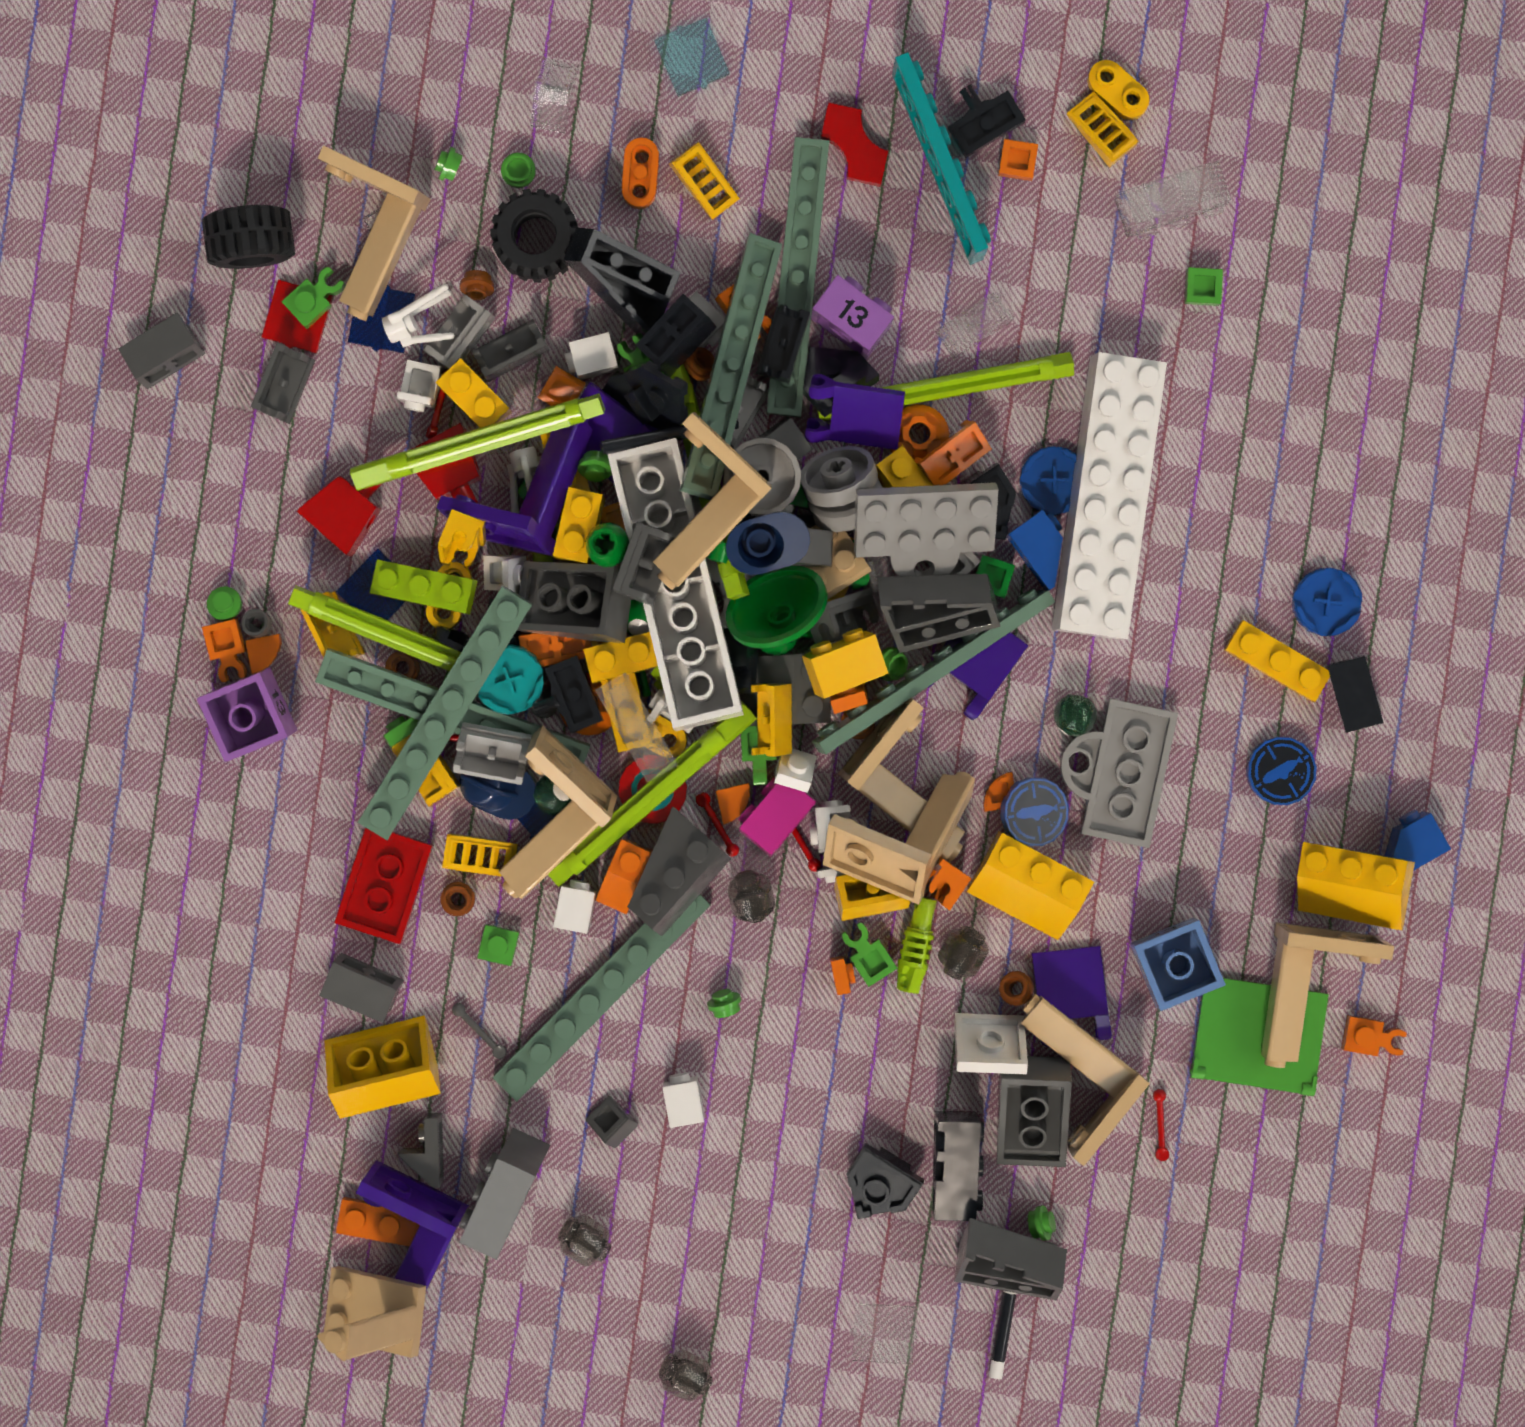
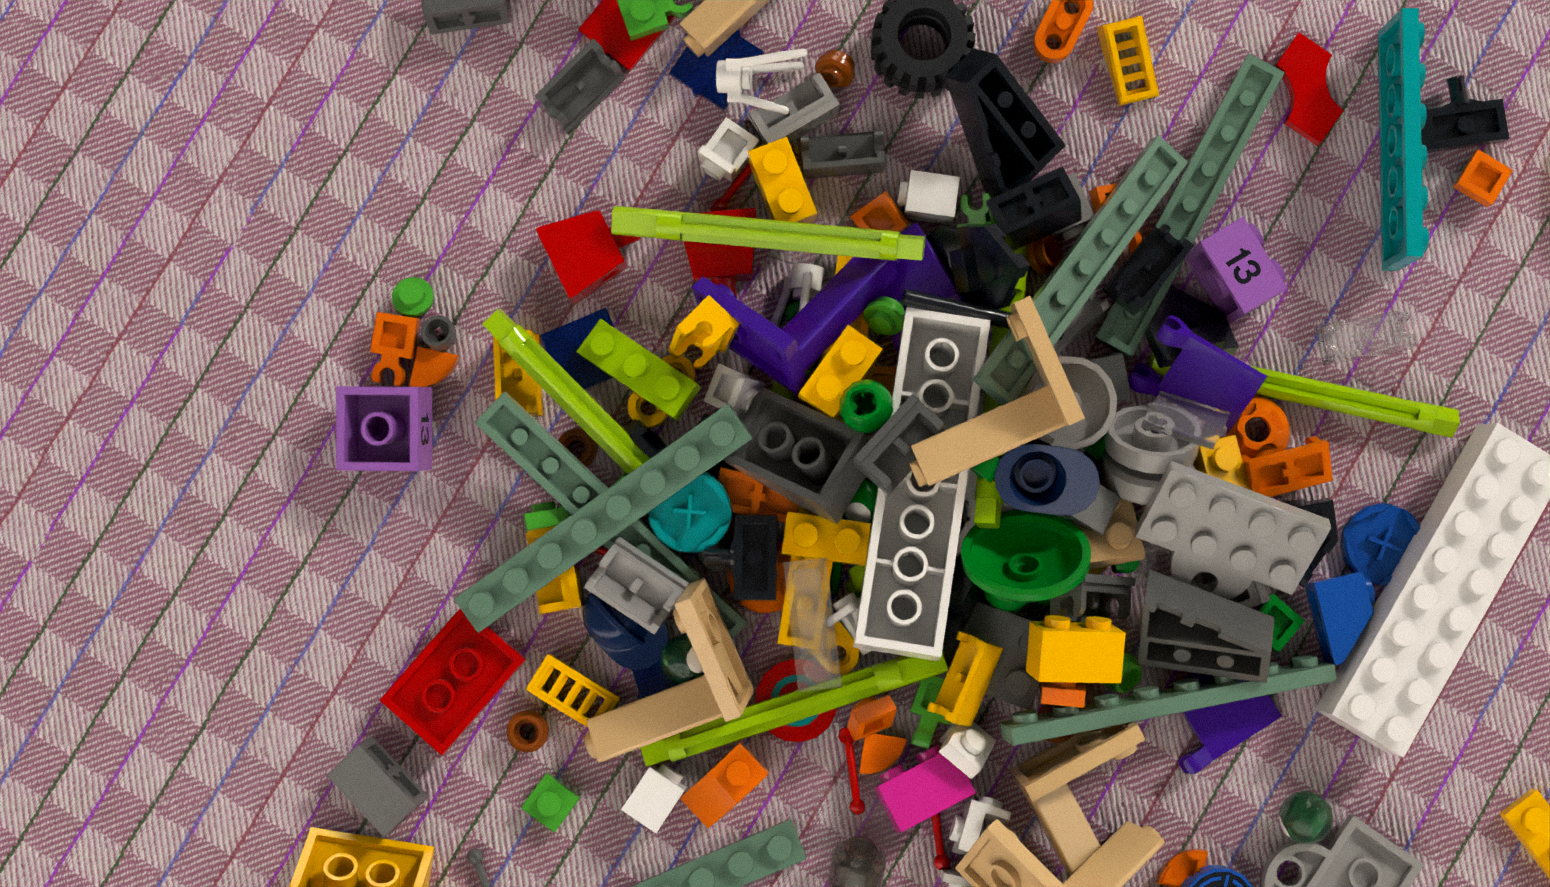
camera: 25 degrees right, 5 degrees down
(675, 873) = (785, 806): dark grey wedge -> none
(714, 777) = (871, 716): none -> orange plate
(858, 450) = (1186, 420): none -> clear piece

